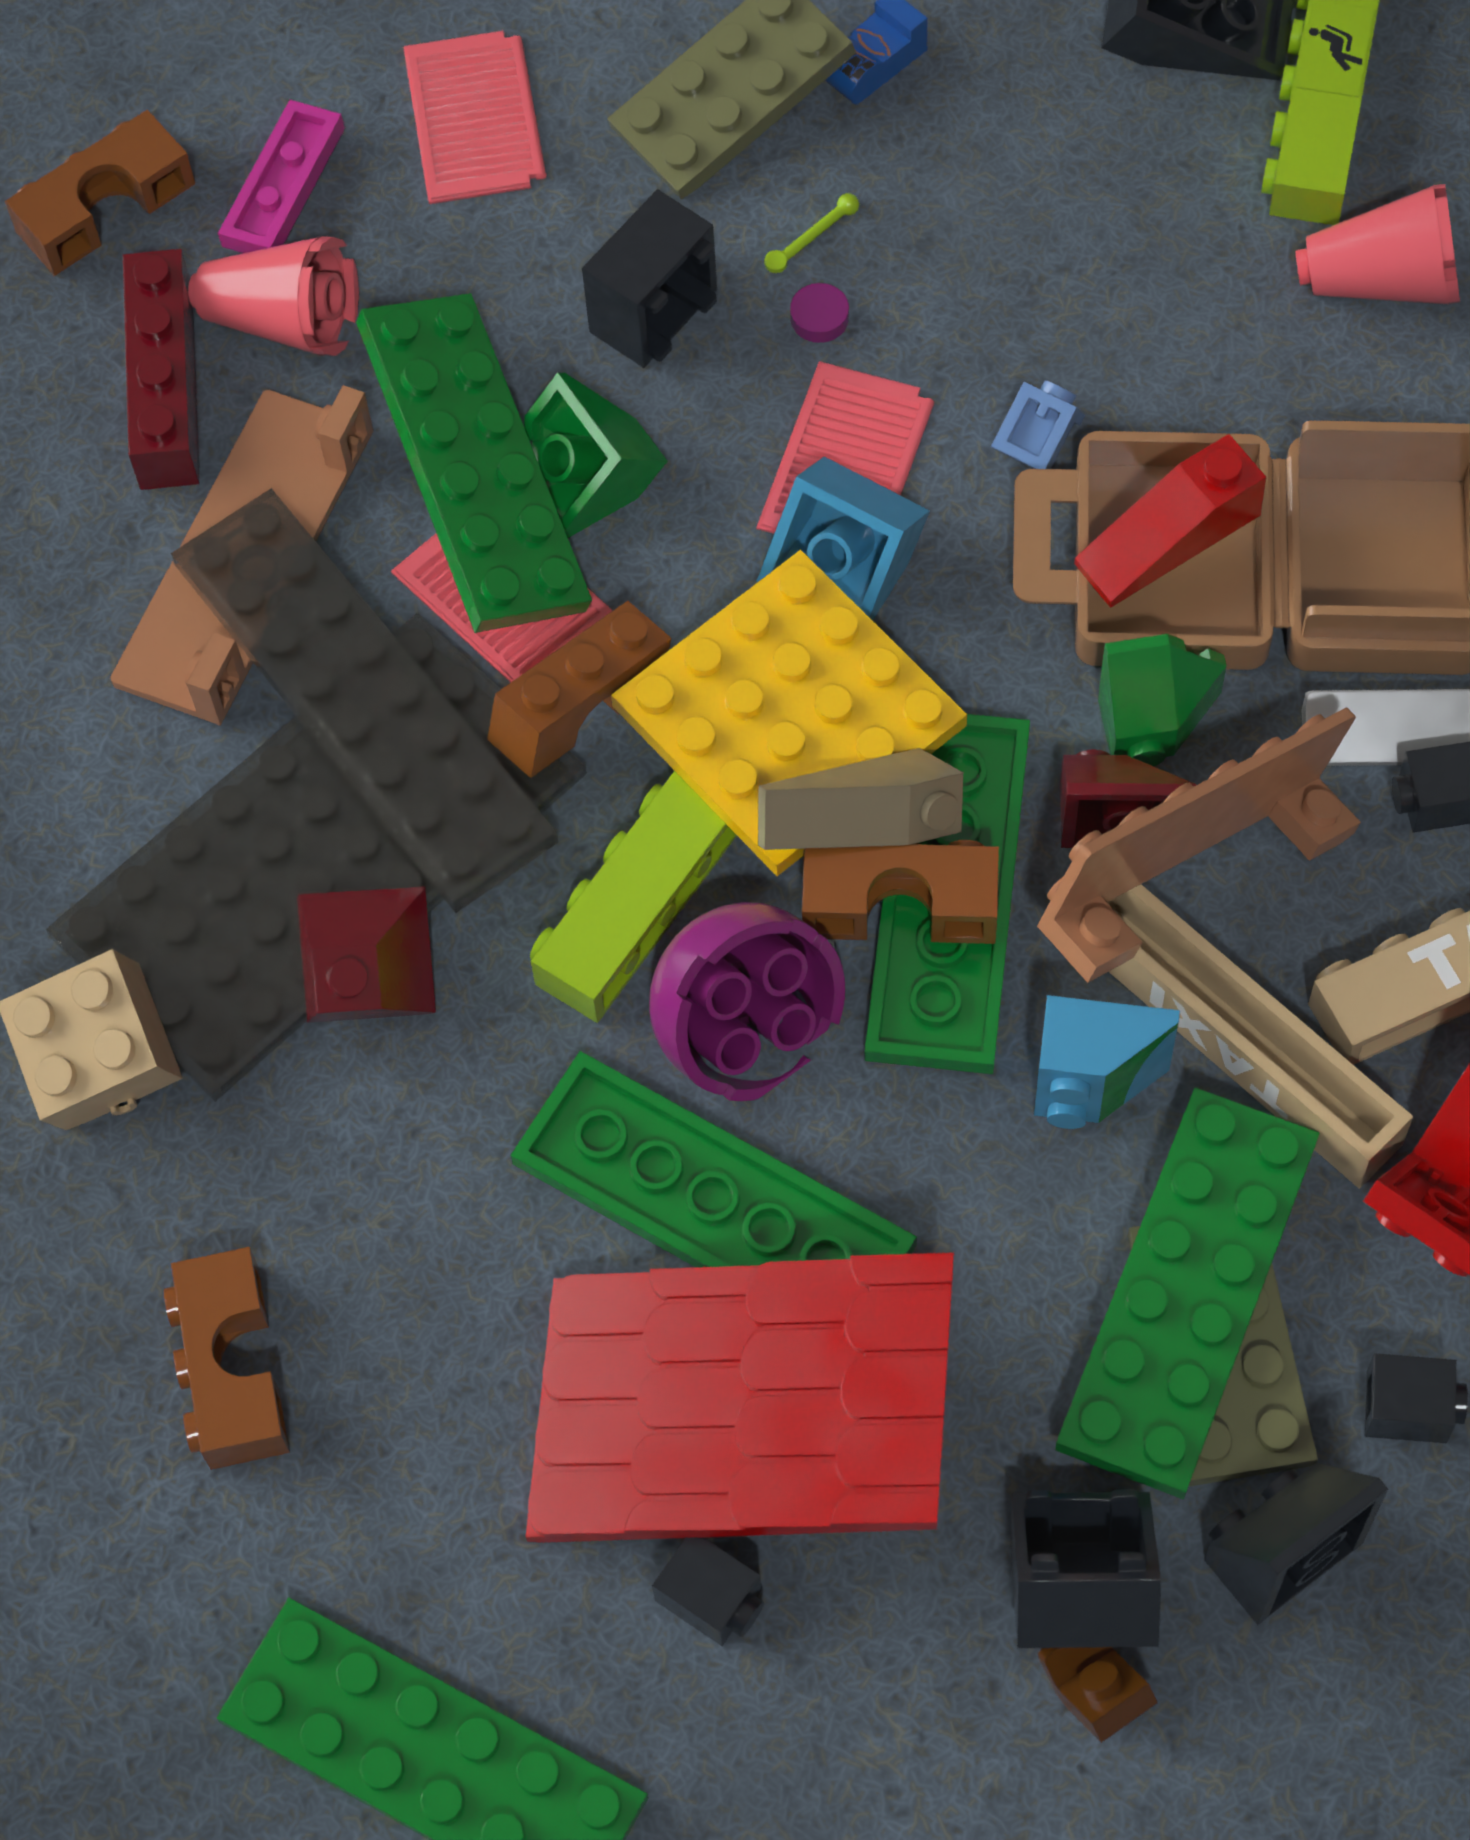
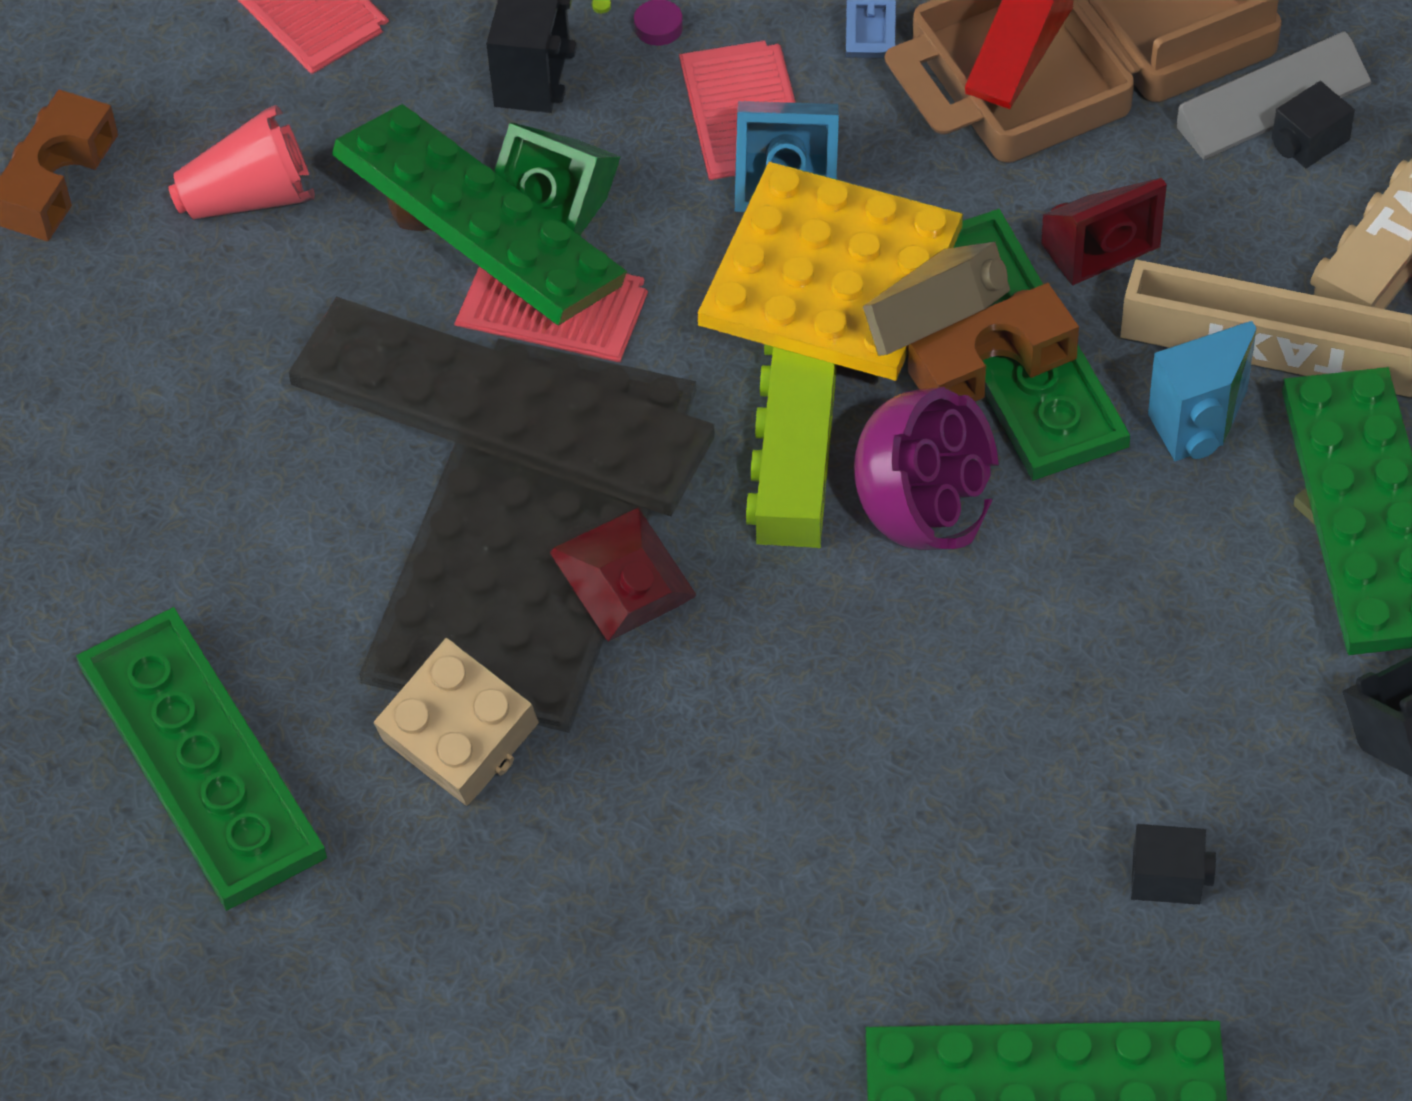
camera: 30 degrees left, 10 degrees down
(160, 370) = (187, 260): dark red brick -> none
(232, 1414) = (736, 924): dark orange arch -> none
(282, 178) = (189, 99): dark pink plate -> none
(306, 456) = (325, 438): nougat bracket -> none
(544, 708) = (659, 324): dark orange arch -> none
(688, 1179) = (991, 617): green plate -> none
(743, 1400) = (1117, 717): red piece -> none
(1155, 694) = (1073, 149): green slope -> none
(1274, 782) = (1195, 176): nougat bracket -> none

